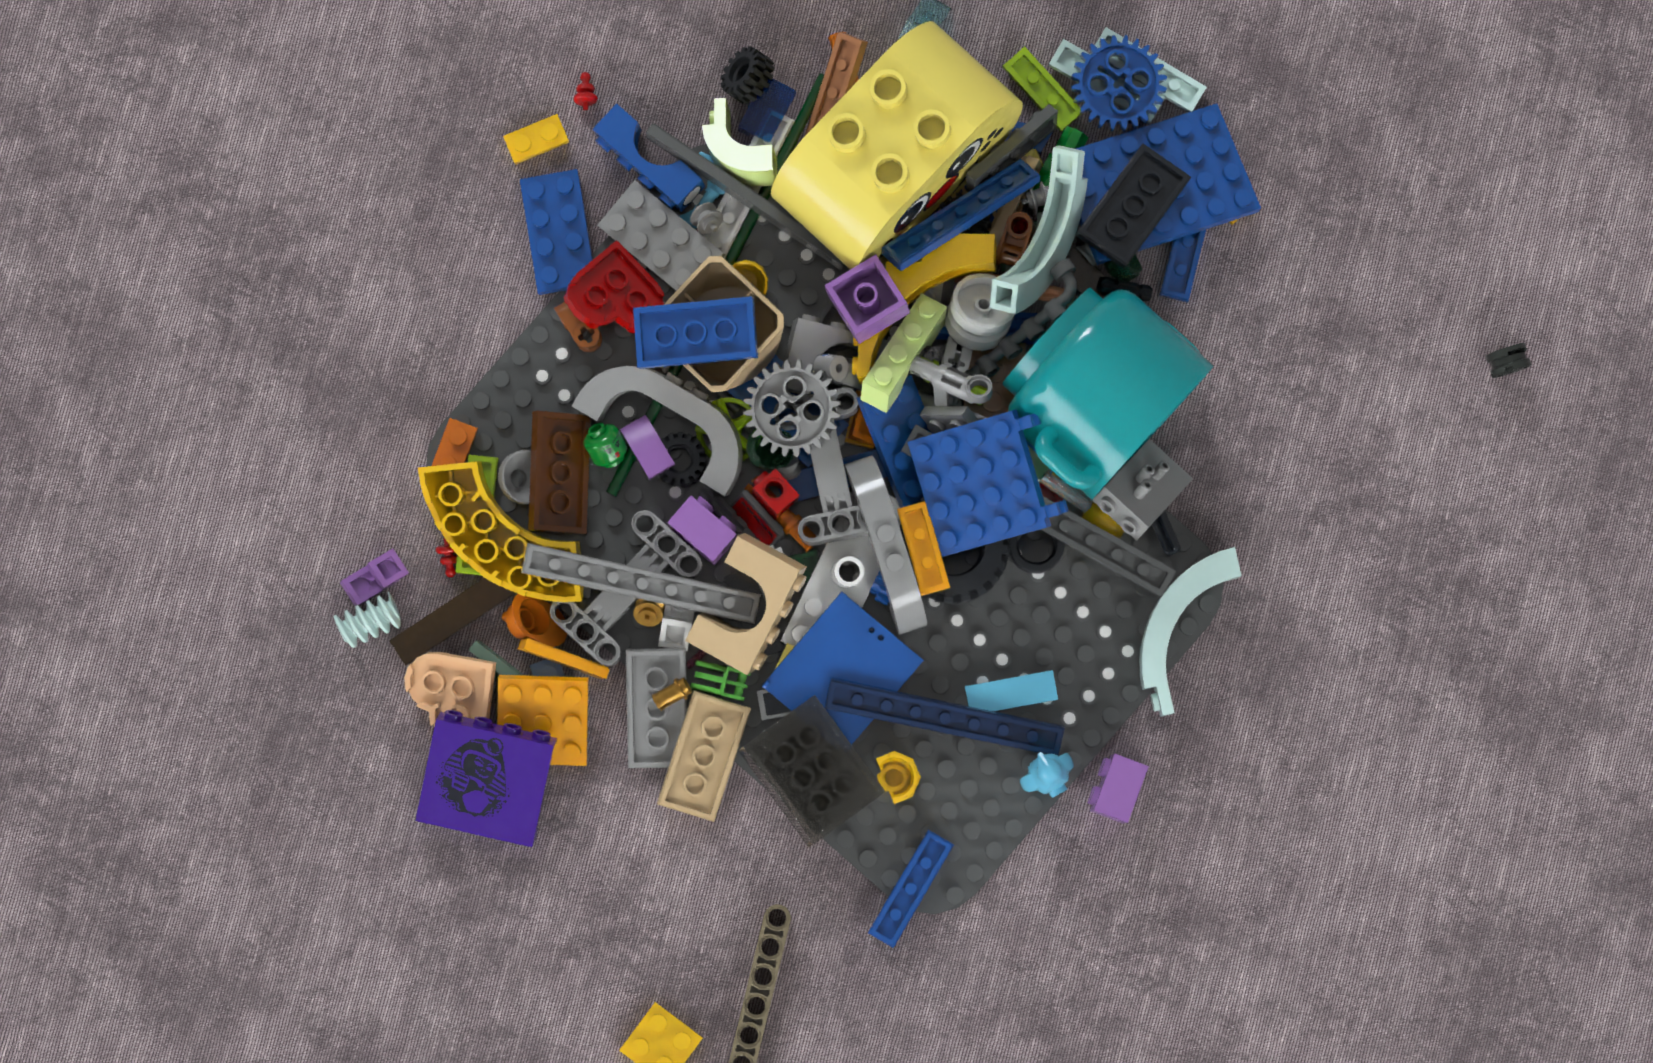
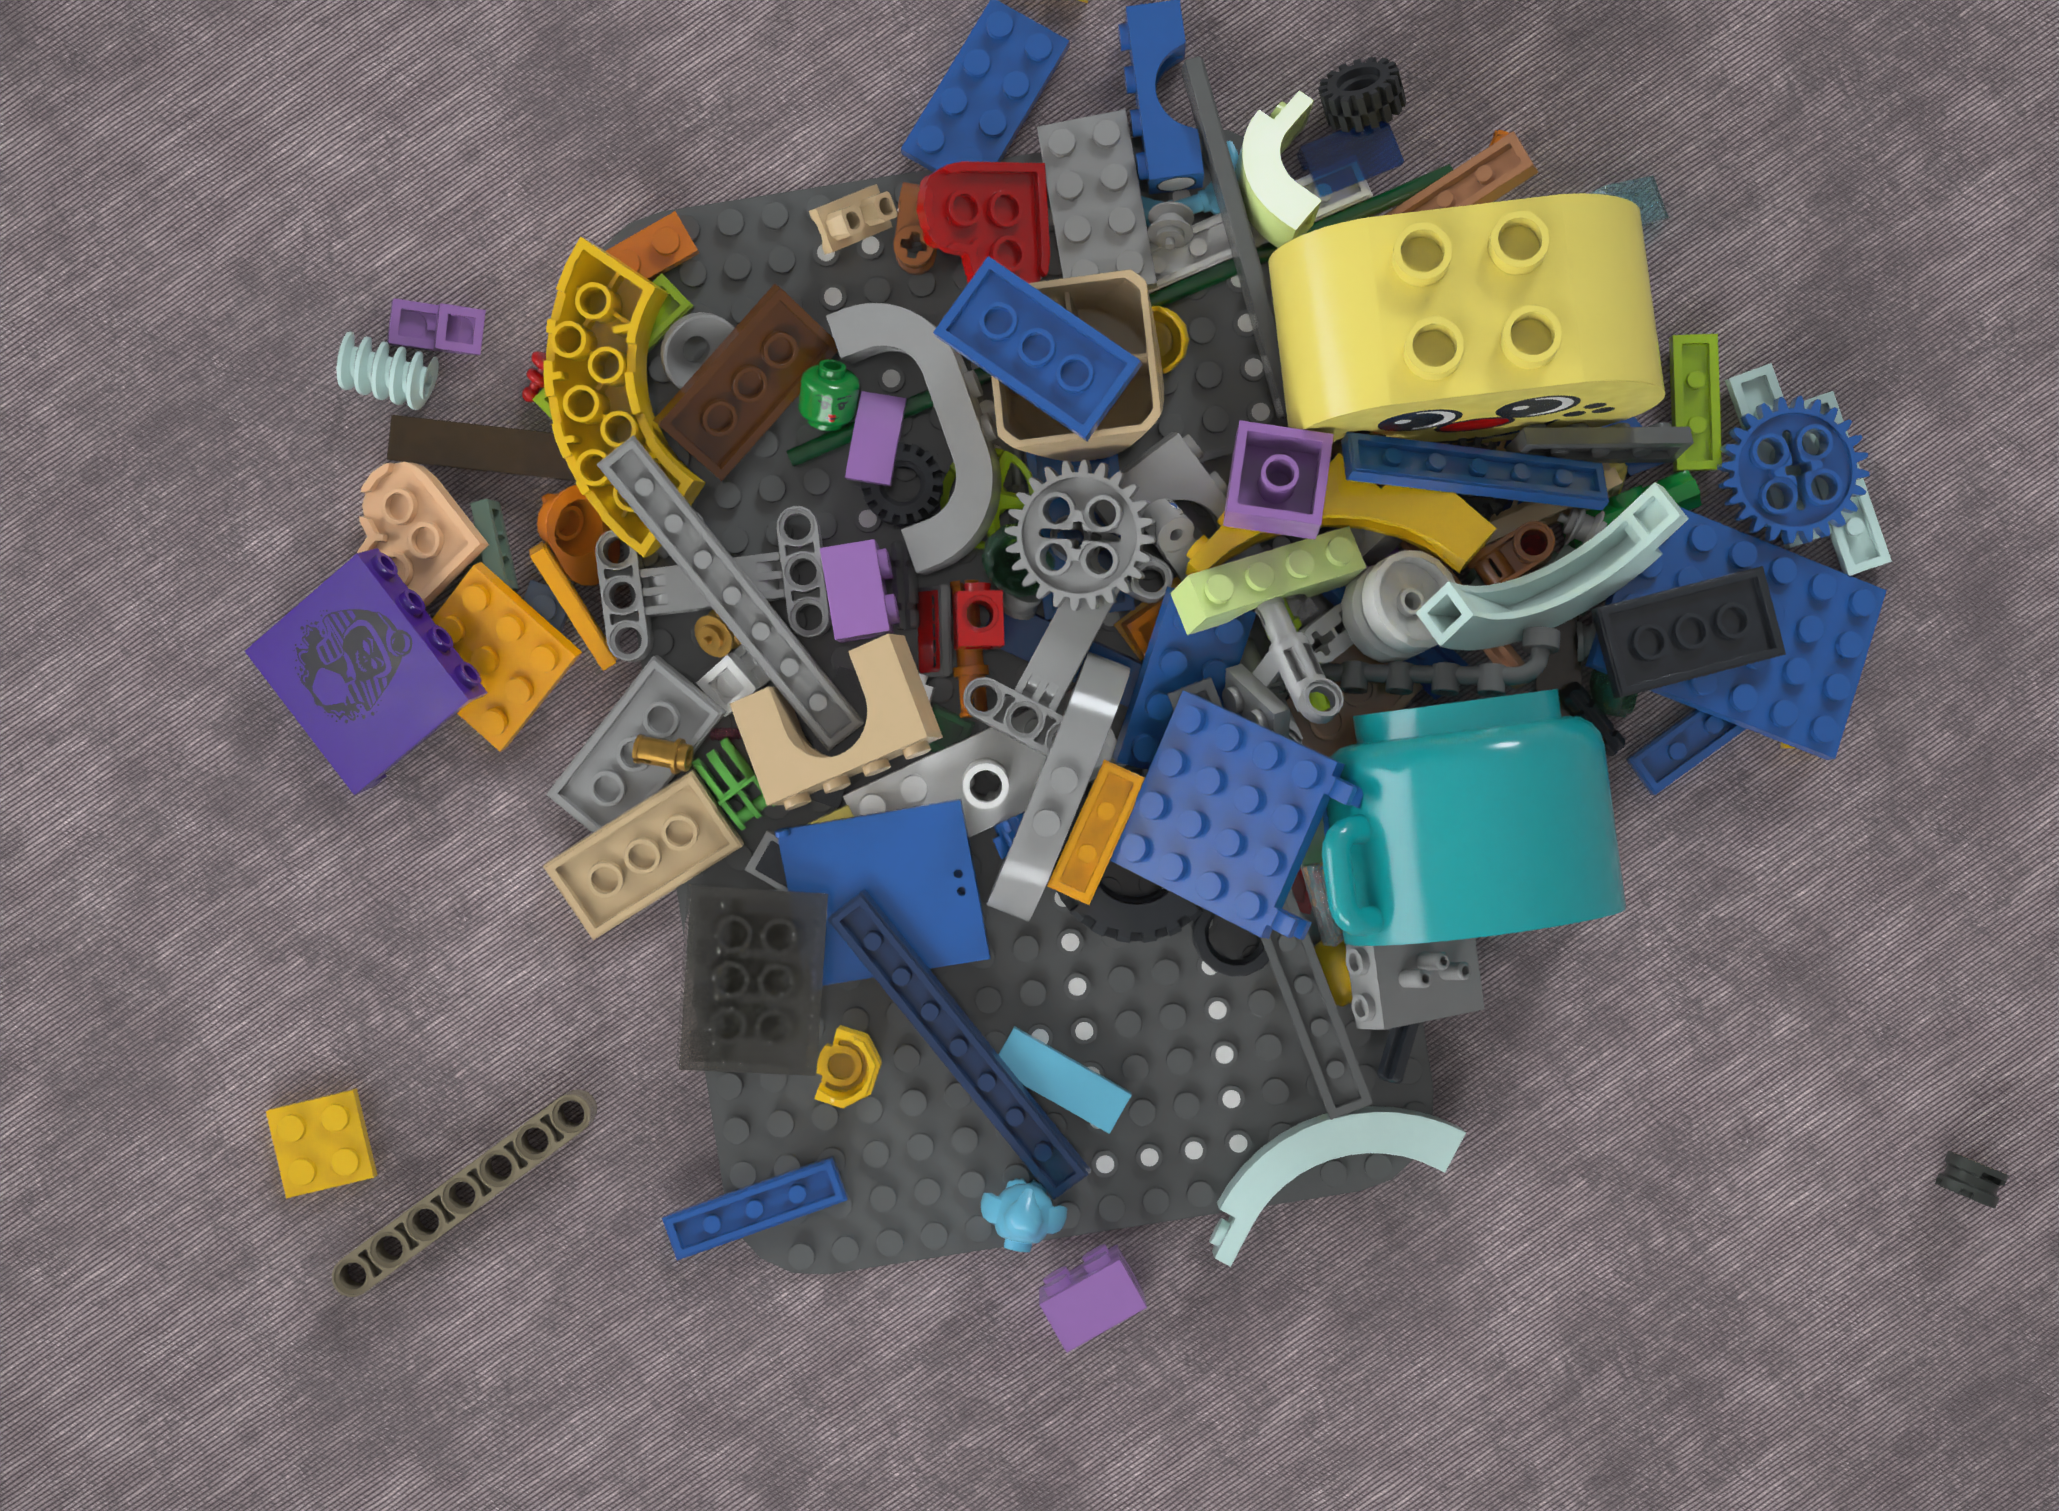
camera: 40 degrees right, 5 degrees up
(544, 345) = (853, 218): none -> tan hips

